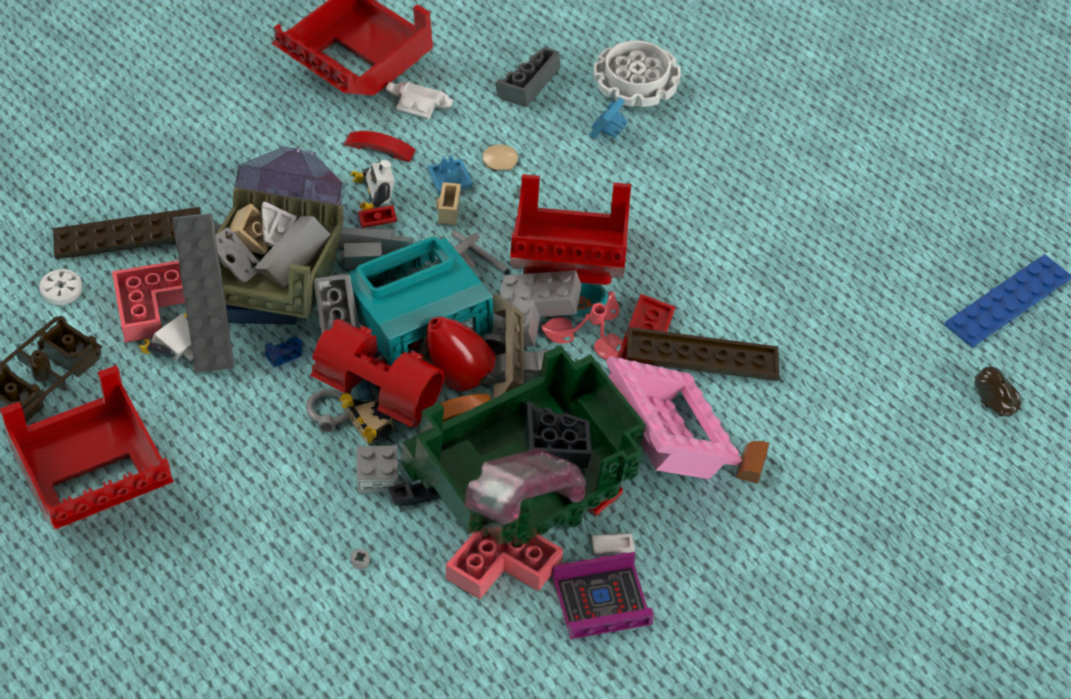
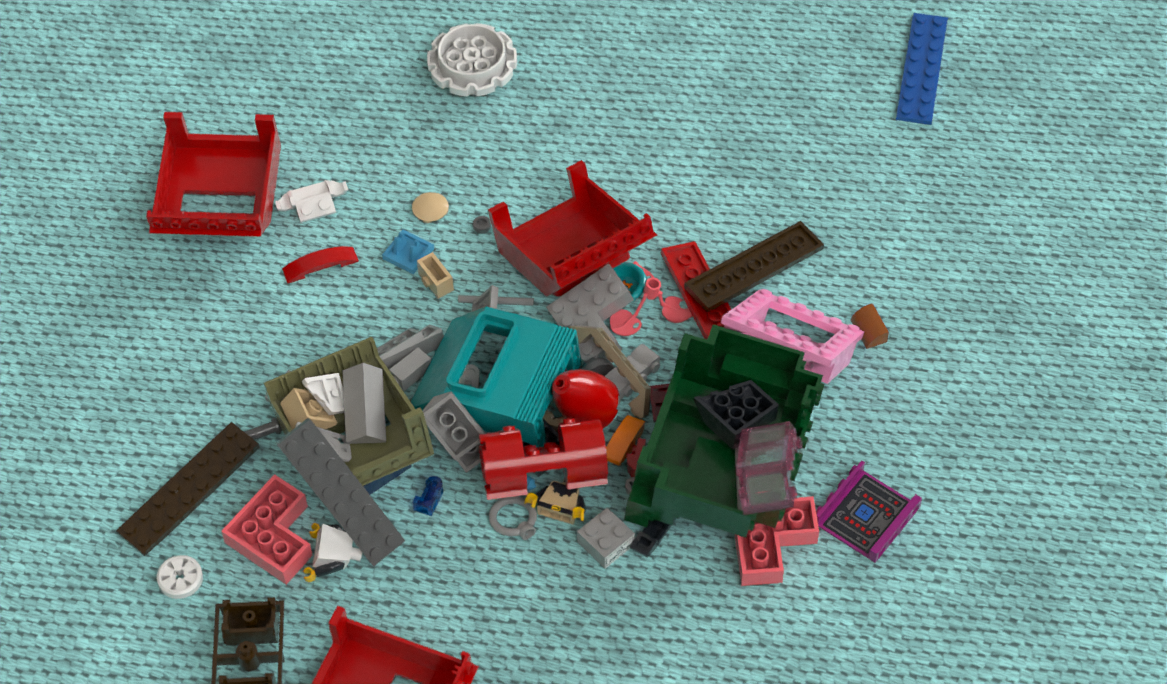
camera: 35 degrees left, 5 degrees up
(291, 174) = (301, 339): clear purple windscreen -> none
(360, 565) = (663, 626): light grey bush -> none
(377, 216) = (385, 327): red slope -> none
(378, 181) = (358, 296): torso -> none
(529, 78) = (387, 124): dark grey wedge -> none
(610, 120) = (489, 115): dark azure plate -> none
(612, 544) = (834, 466): white tile -> none
(997, 391) = (984, 148): dark brown piece -> none

